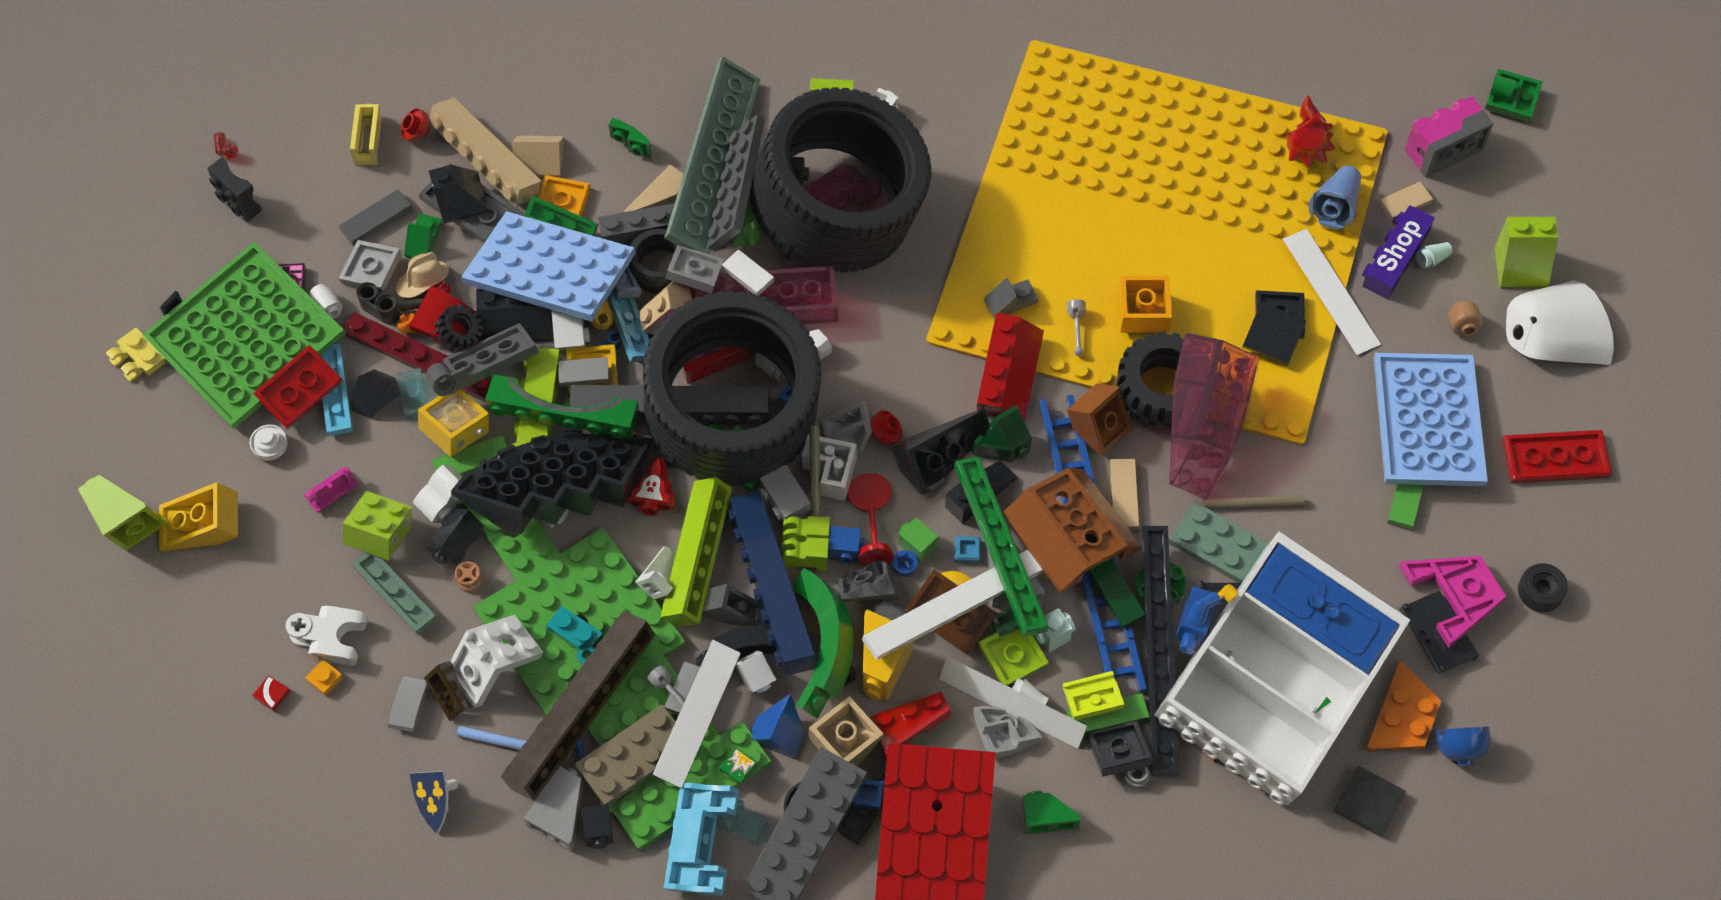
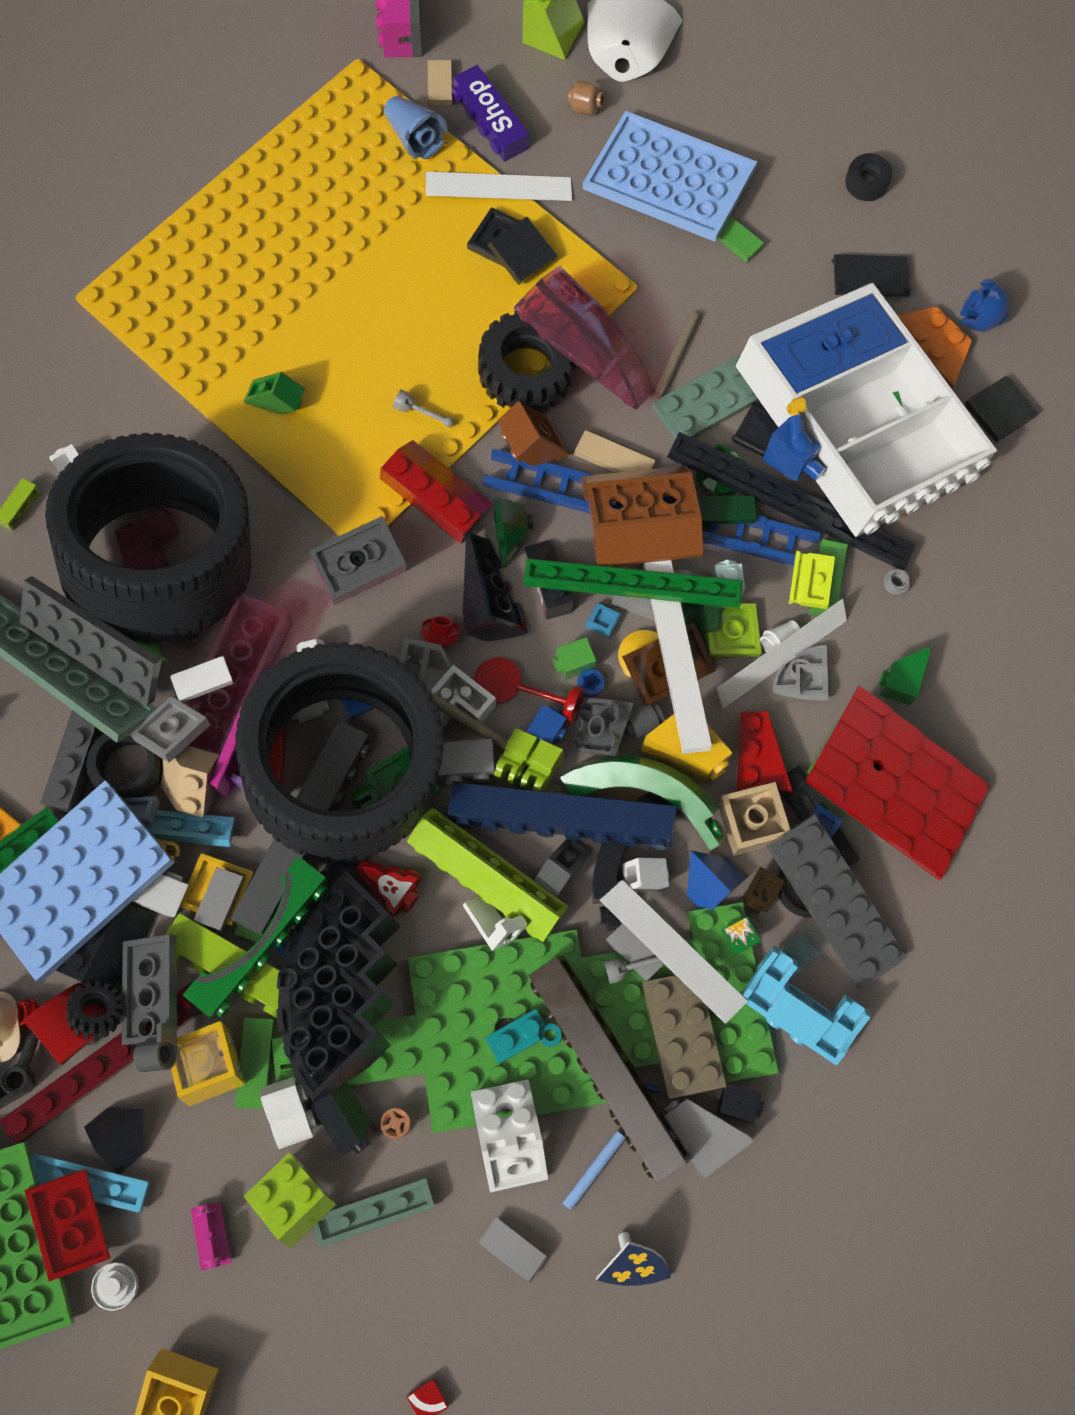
camera: 70 degrees left, 10 degrees up
(324, 633) = (388, 1312): white piece -> none
(324, 677) = (436, 1332): light orange plate -> none
(403, 324) = (47, 1065): orange piece -> none
(412, 392) = (141, 1094): clear light blue plate -> none
(444, 682) = (507, 1199): dark brown slope -> none
(611, 336) = (192, 860): blue hand -> none
(660, 191) = (46, 724): tan slope -> none
(786, 768) = (762, 891): none -> dark brown bracket
(910, 337) = (357, 560): none -> dark grey piece
(1010, 298) = (358, 453): dark grey slope -> none
(1026, 215) = (275, 393): none -> green slope
(1119, 748) = (869, 583): black tile -> none
(1144, 304) = (435, 338): light orange brick -> none
(1311, 136) = (336, 114): red head -> none
(1431, 255) = (508, 88): light aqua cone -> none
(1467, 587) = (844, 232): dark pink wing -> none
(1556, 456) = (749, 104): red tile -> none

